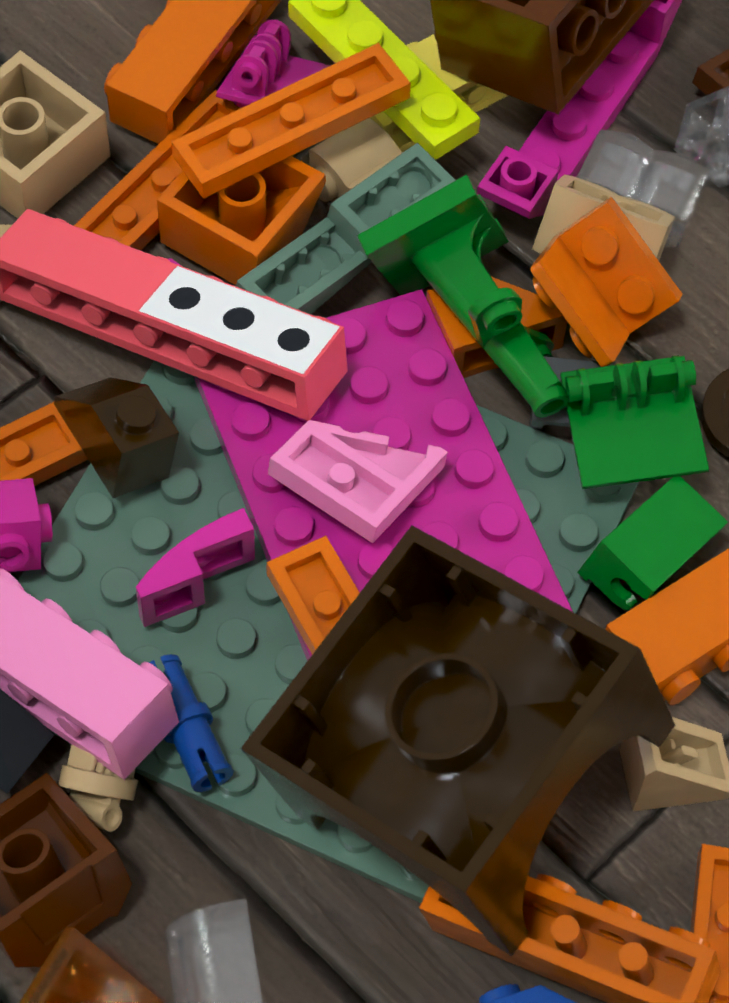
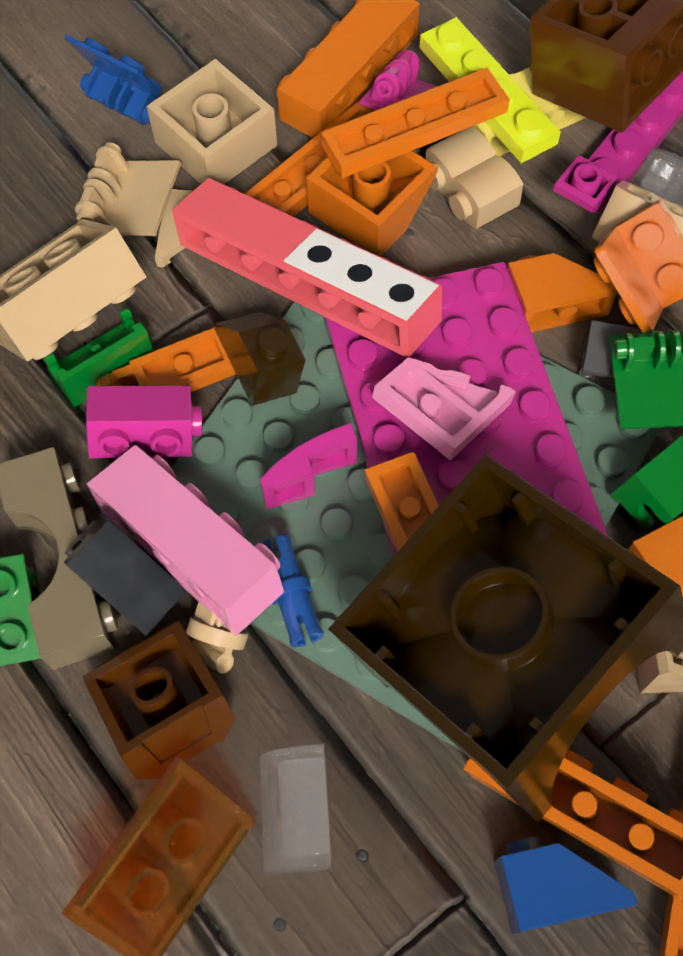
camera: 10 degrees right, 5 degrees up
(330, 252) = (456, 213): sand green slope -> none
(442, 246) = (523, 228): green piece -> none

